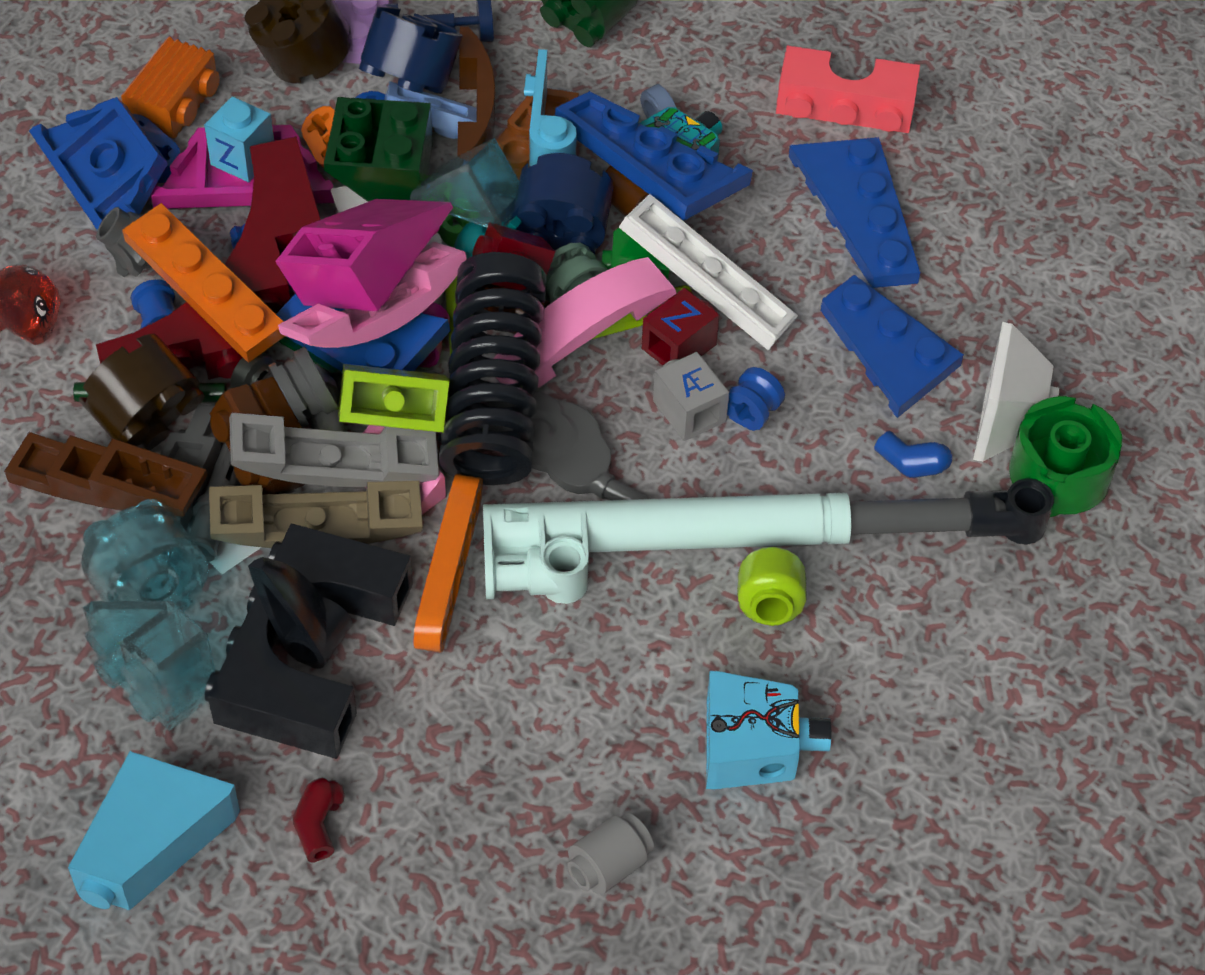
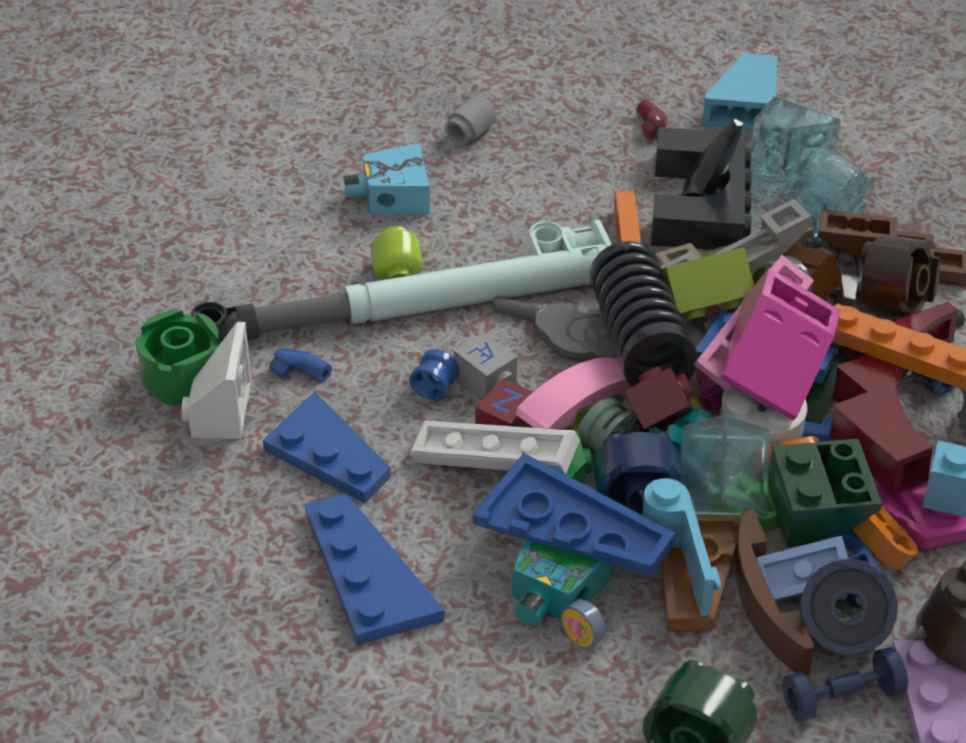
camera: 170 degrees right, 10 degrees down
(815, 92) = (358, 668): coral arch -> none

